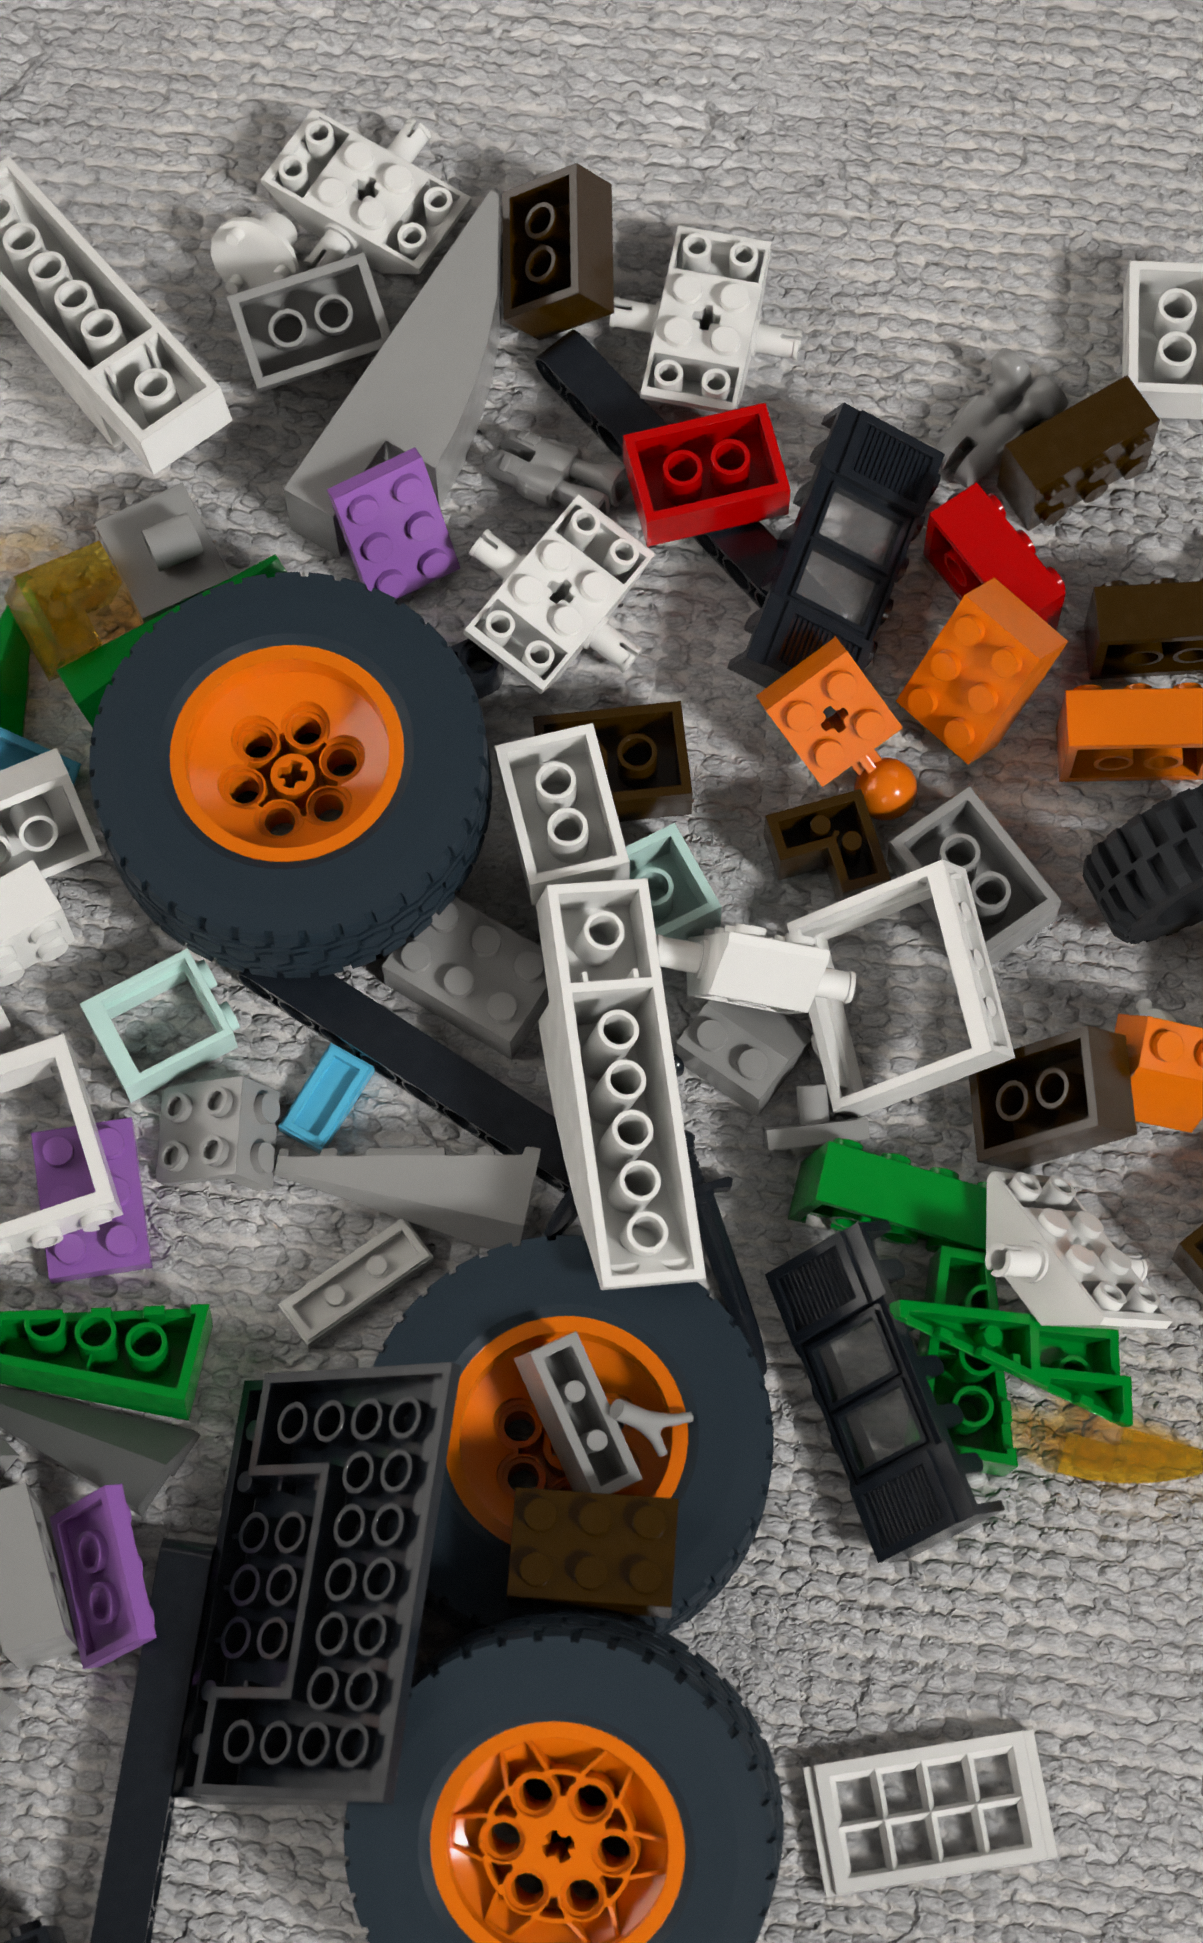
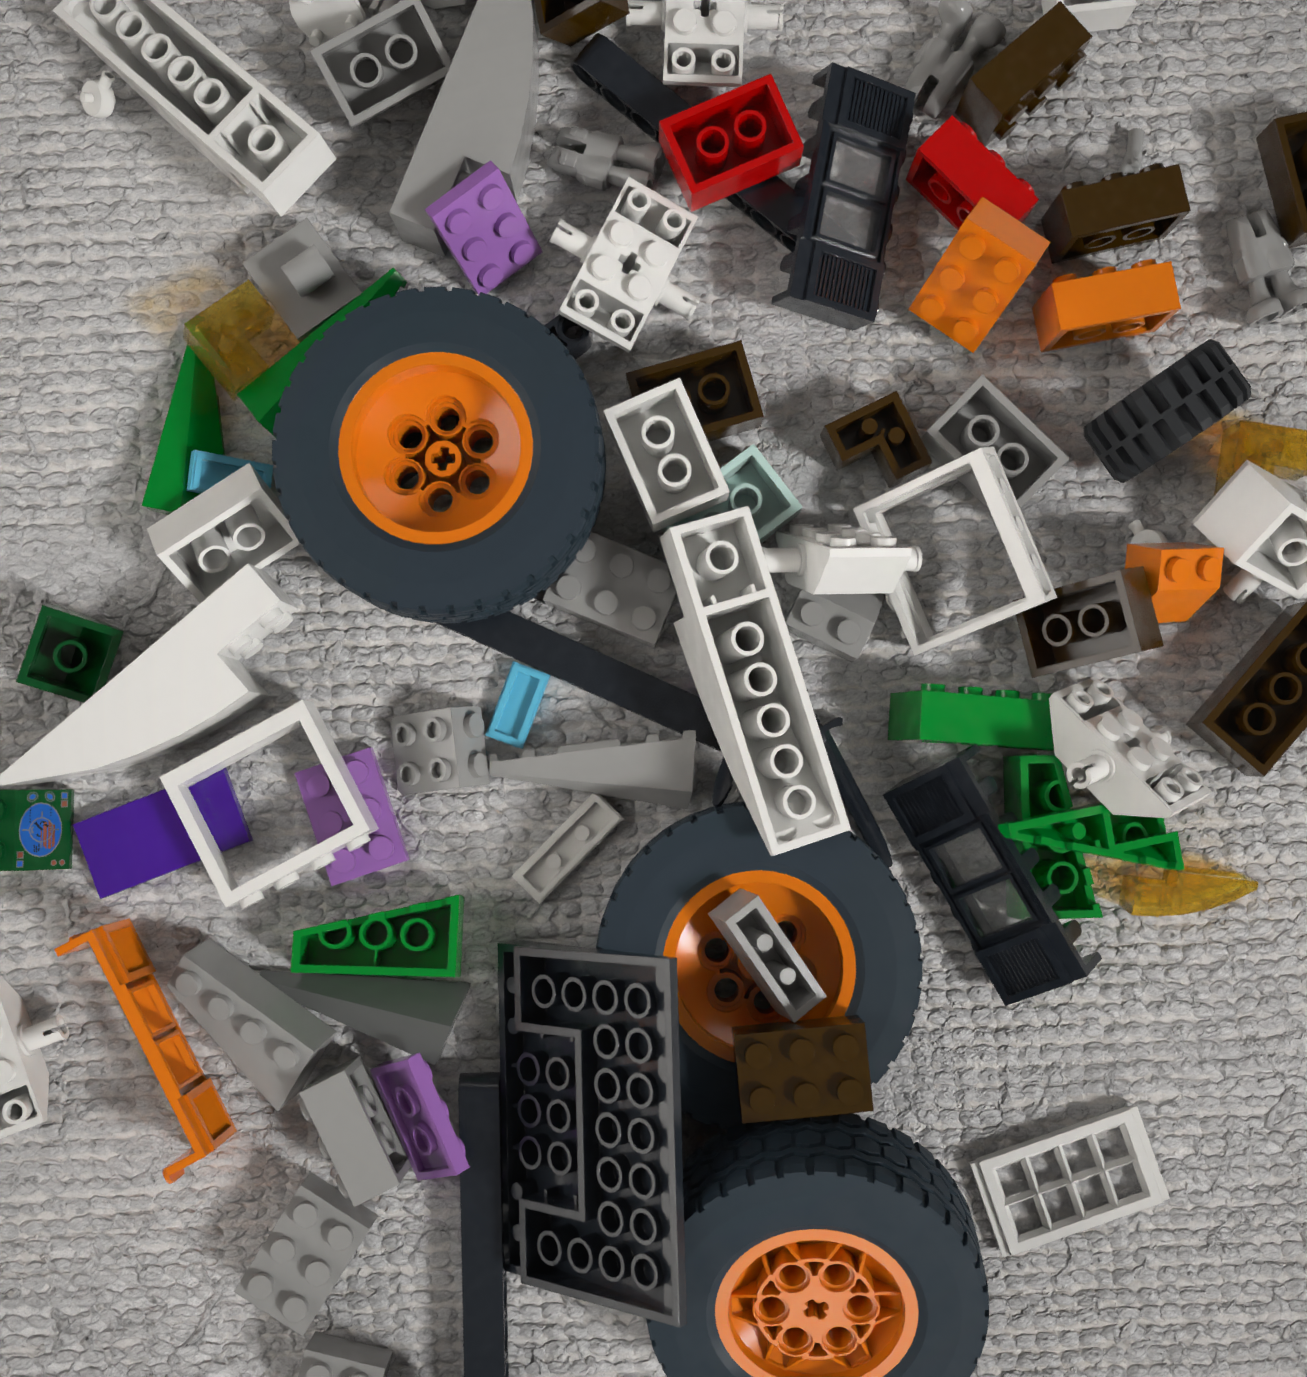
camera: 10 degrees left, 15 degrees up
(143, 987) = (344, 694): light aqua window -> none
(647, 1422) = (823, 950): light grey bar -> none
(815, 1123) = (900, 667): light grey tile -> none
(847, 736) = (870, 337): orange brick -> none

